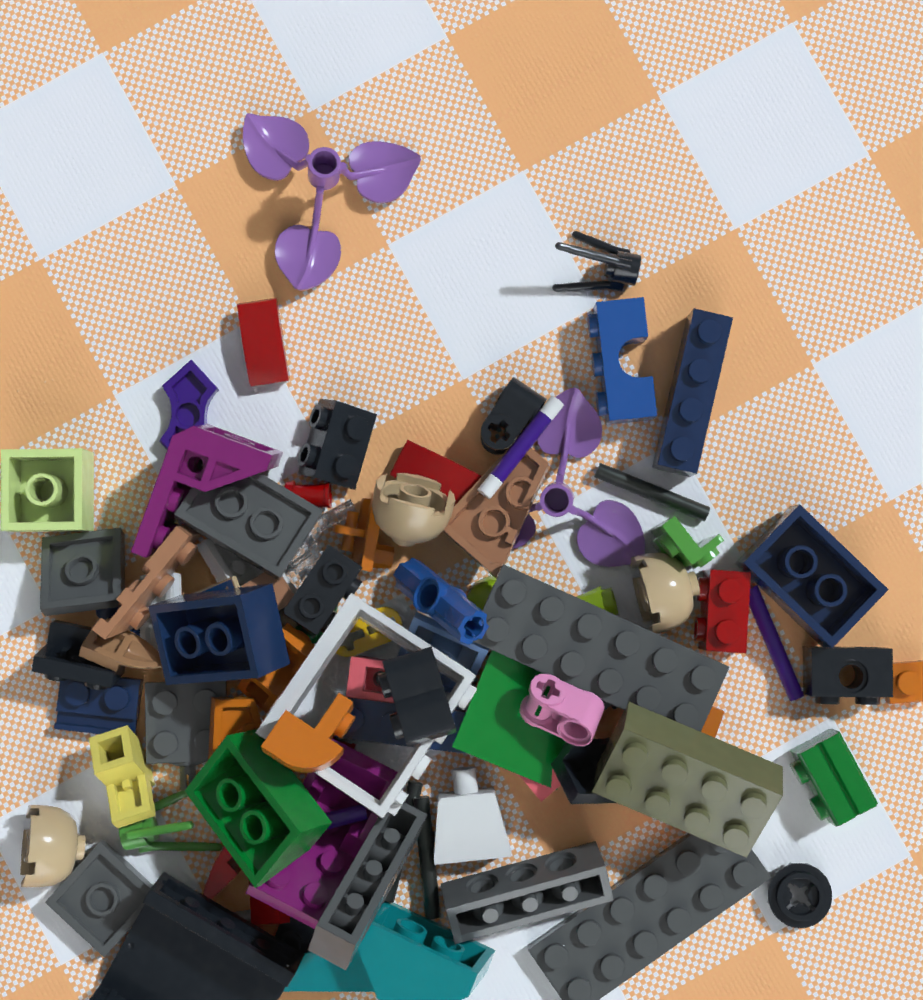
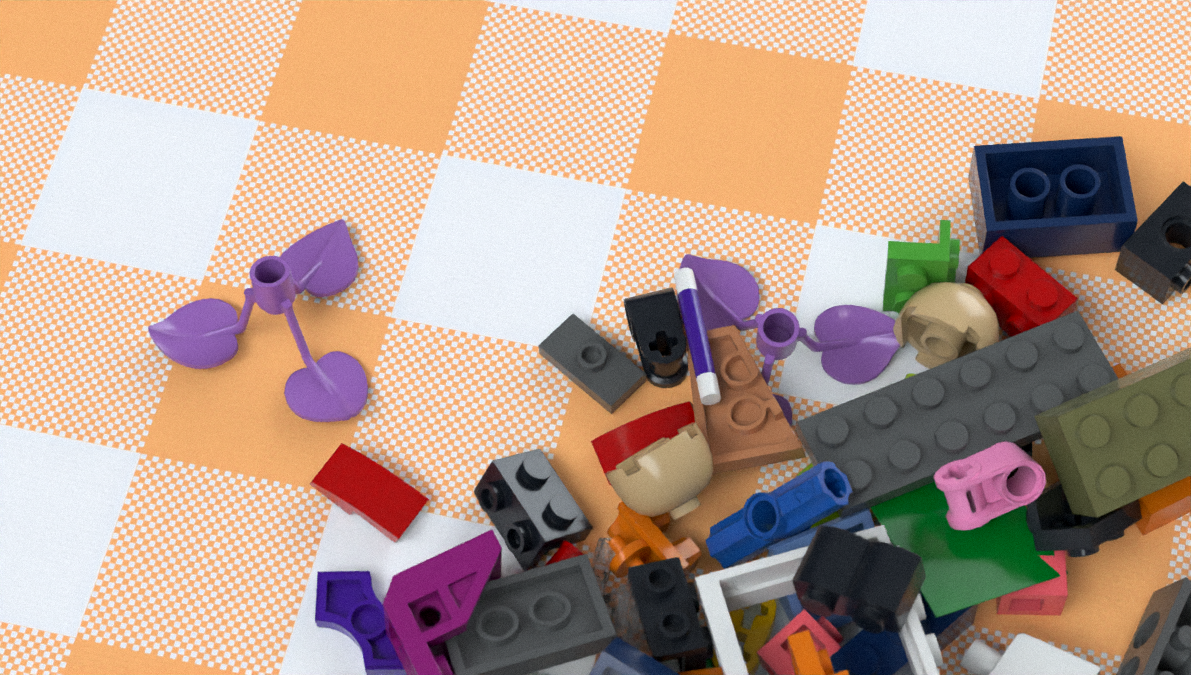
camera: 45 degrees left, 25 degrees down
(460, 393) = (592, 363): none -> dark grey plate
(619, 265) = (608, 139): black plant -> none
(622, 396) = (729, 226): blue arch -> none
(652, 492) = (833, 282): pearl dark grey bar -> none
(692, 393) = (786, 168): dark blue brick -> none
(774, 645) = (1106, 292): dark purple bar -> none

